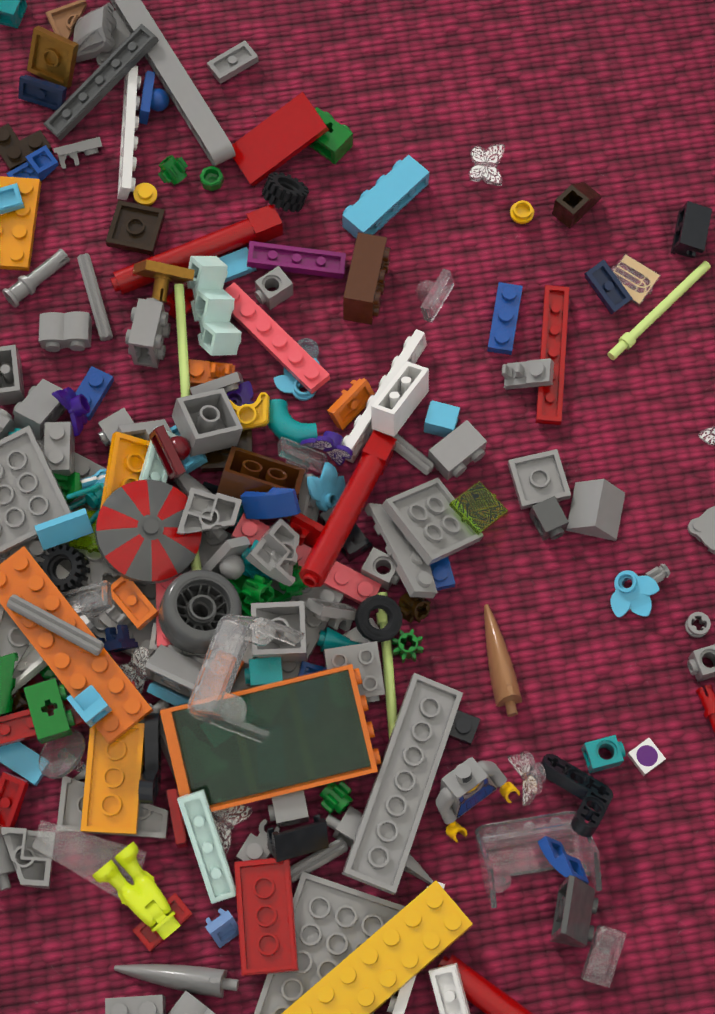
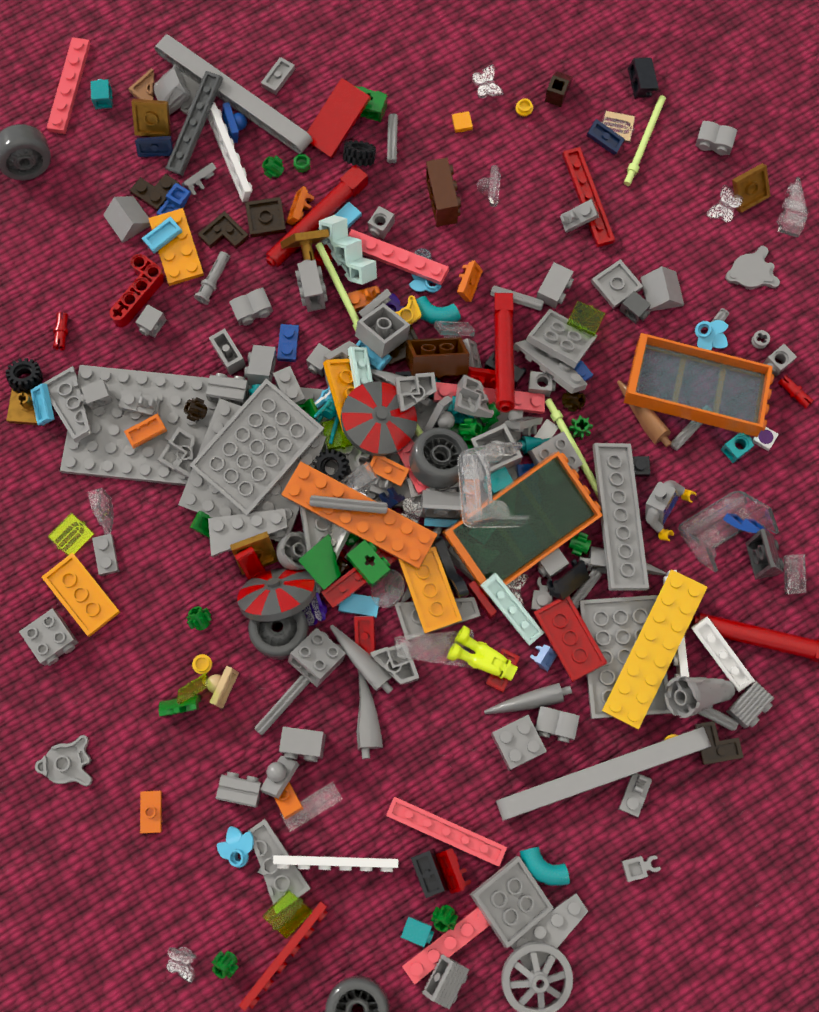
camera: 20 degrees left, 5 degrees up
(64, 529) = (322, 439): medium azure tile -> none
(77, 221) = (222, 228): none -> dark brown plate
(77, 407) = (287, 354): dark purple animal -> none
(90, 705) = (397, 548): medium azure panel -> none
(95, 297) = (260, 276): light grey axle -> none
(145, 194) = (261, 191): yellow plate -> none
(170, 451) = (368, 359): dark red tile -> none
(185, 225) = (299, 203): none -> orange plate
(270, 505) = (456, 367): blue slope -> none
(296, 259) = (387, 197): magenta plate -> none
(327, 488) = (481, 344): medium azure plate -> none
(331, 444) = (471, 313): dark purple animal -> none
(338, 189) = (392, 138): none -> light grey axle
(362, 429) = (489, 260): white plate -> none
(386, 197) = (428, 133): medium azure brick -> none
(394, 618) = (565, 412): black tyre -> none
(400, 398) = (503, 265): white brick -> none
(435, 201) = (462, 122): none -> light orange tile
(441, 419) = (535, 268): medium azure panel -> none
(504, 318) = (545, 184): blue plate -> none
(531, 774) = (698, 477): clear animal -> none
(553, 704) = (685, 434): none -> light grey axle
(586, 652) = (699, 385): none -> window
(590, 790) = (745, 475): black beam -> none

